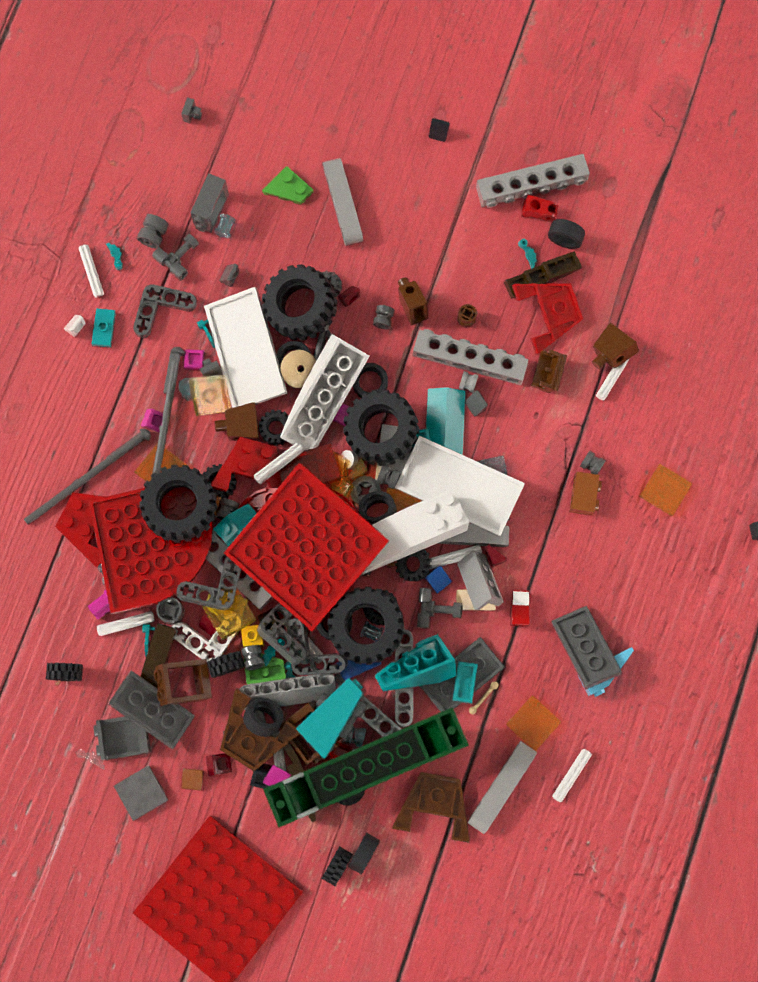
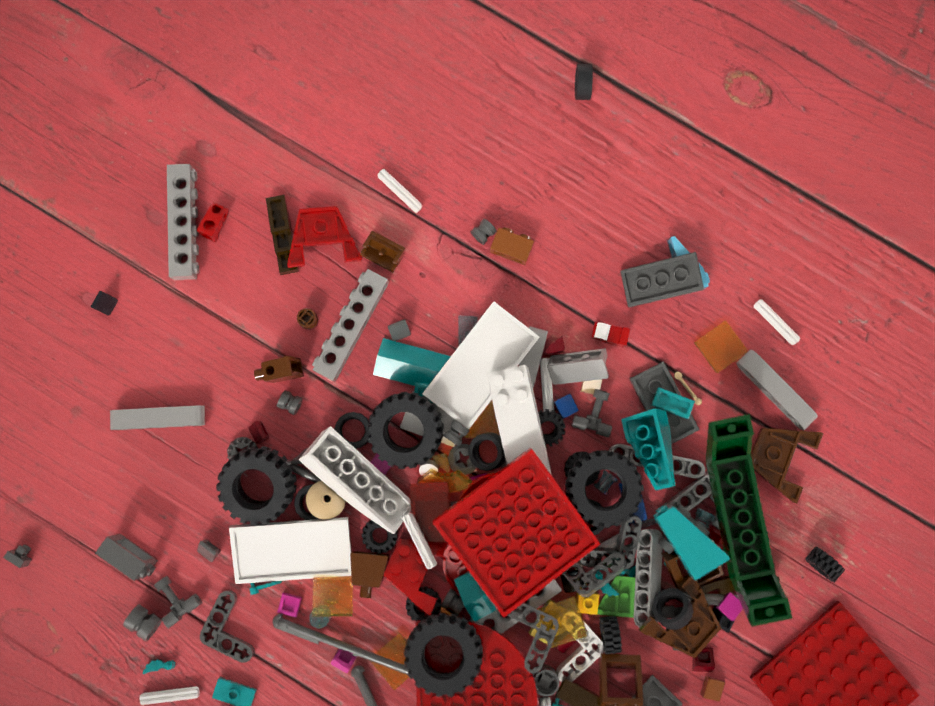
camera: 75 degrees left, 5 degrees up
(210, 369) = (305, 590): dark grey tile -> none
(225, 225) = (154, 545): clear light blue bush -> none
(253, 657) = (609, 606): dark grey wheel -> none
(288, 187) = (128, 469): bright green wing -> none
(364, 853) = (817, 535): black tyre -> none
(468, 381) = (375, 332): light grey wheel -> none
(529, 252) = (255, 242): teal piece -> none
(566, 234) = (246, 201): black tyre -> none
(613, 347) = (373, 183): reddish brown torso -> none
(665, 490) = (523, 169): clear yellow tile -> none

